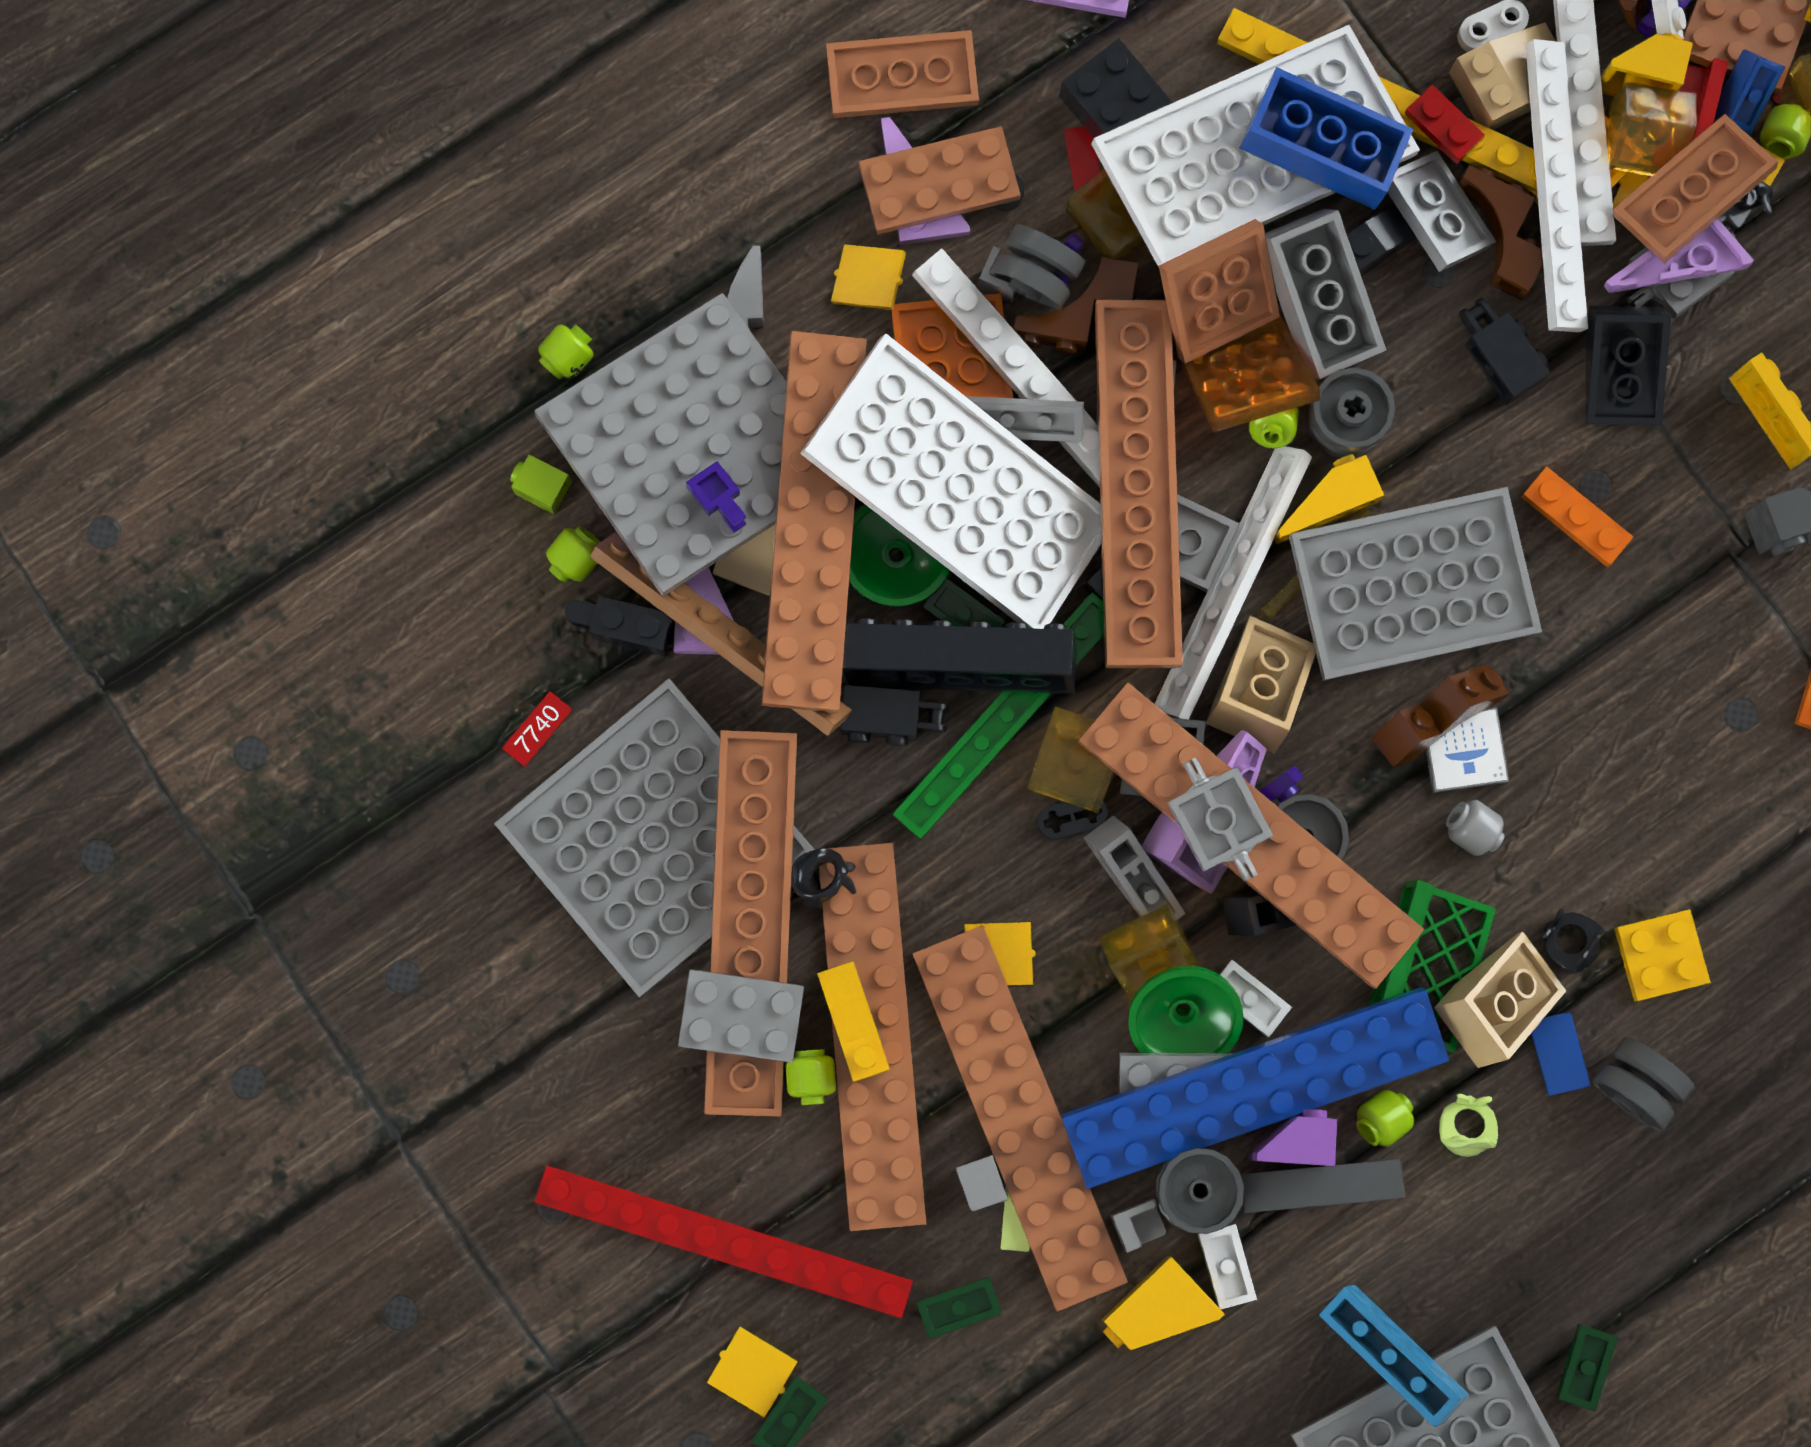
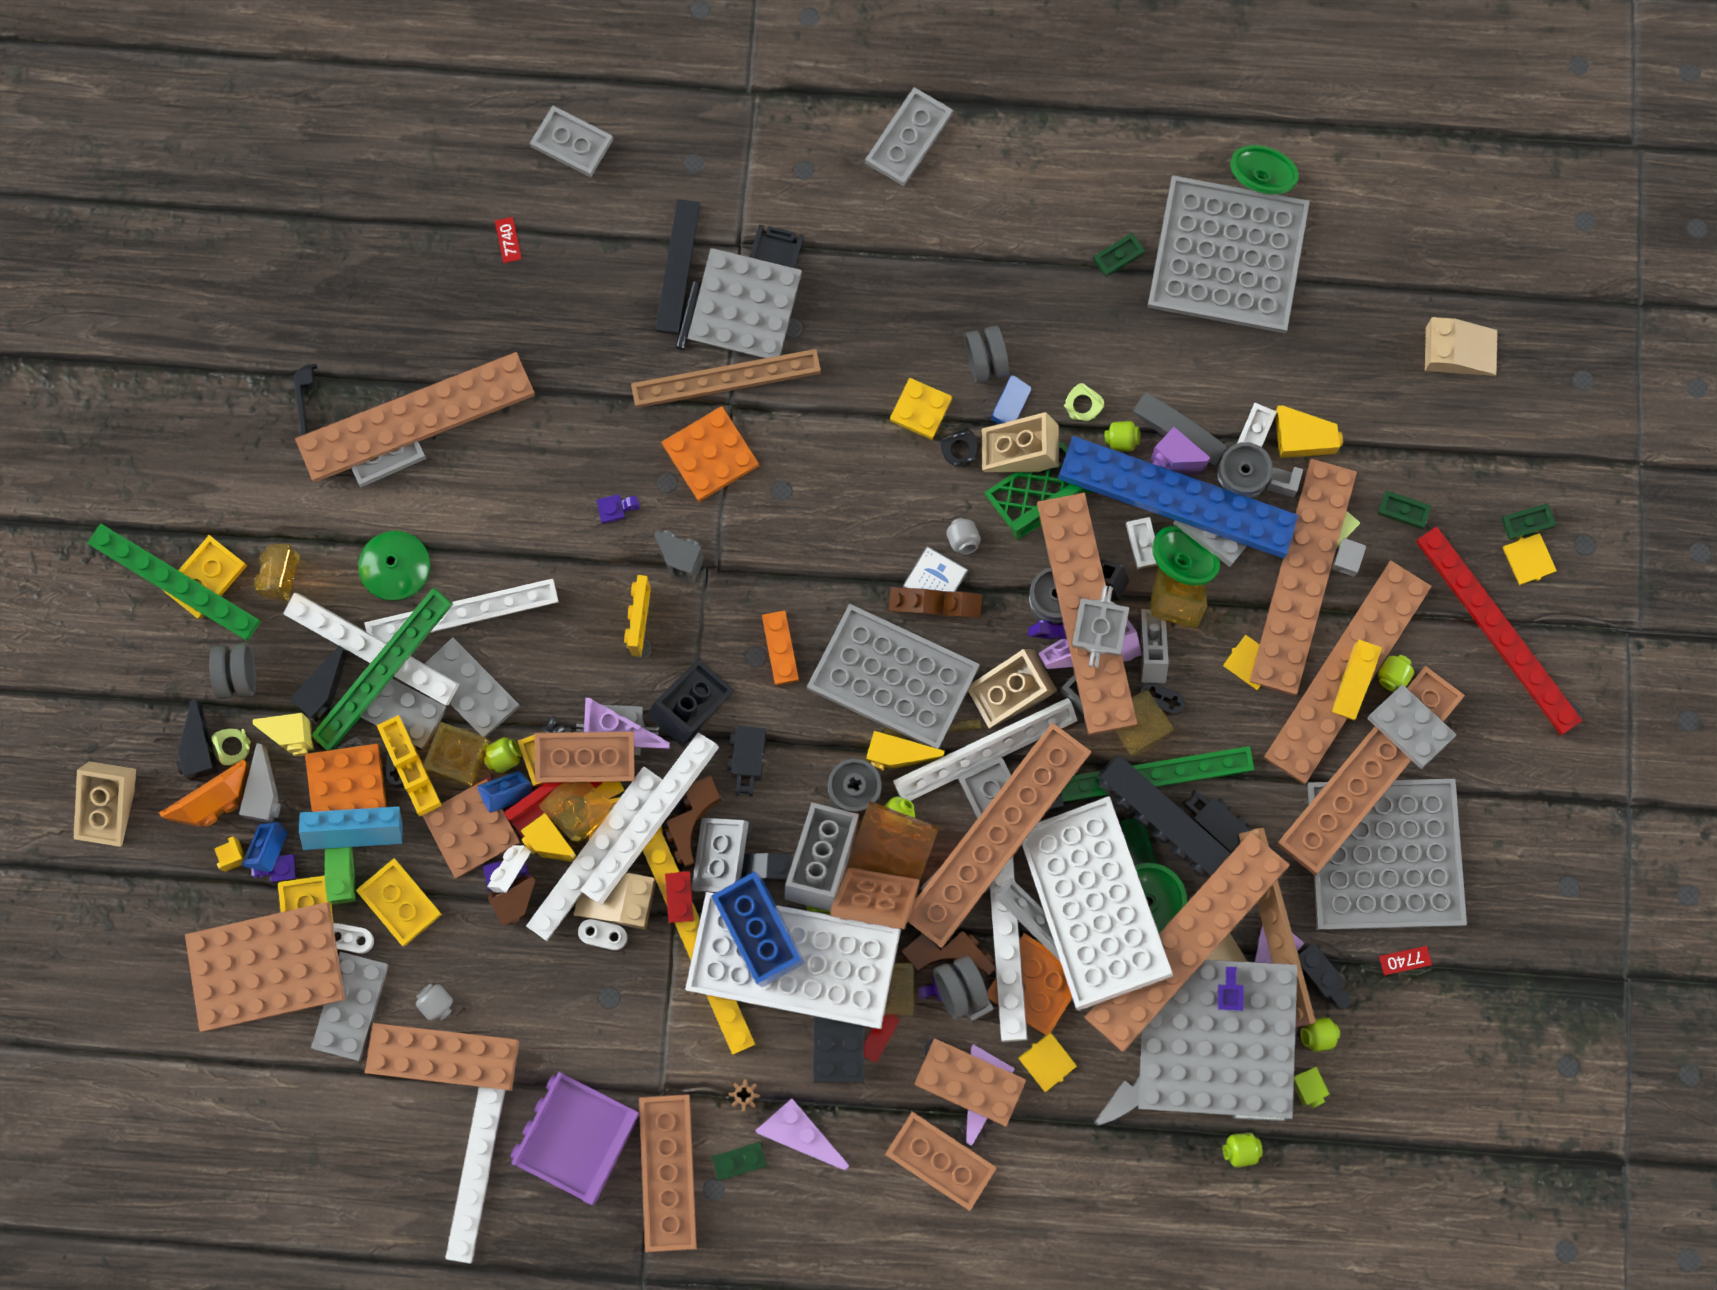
camera: 135 degrees left, 5 degrees down
(807, 883) = (1325, 769): black piece -> none
(1394, 1355) = (1211, 325): dark azure brick -> none

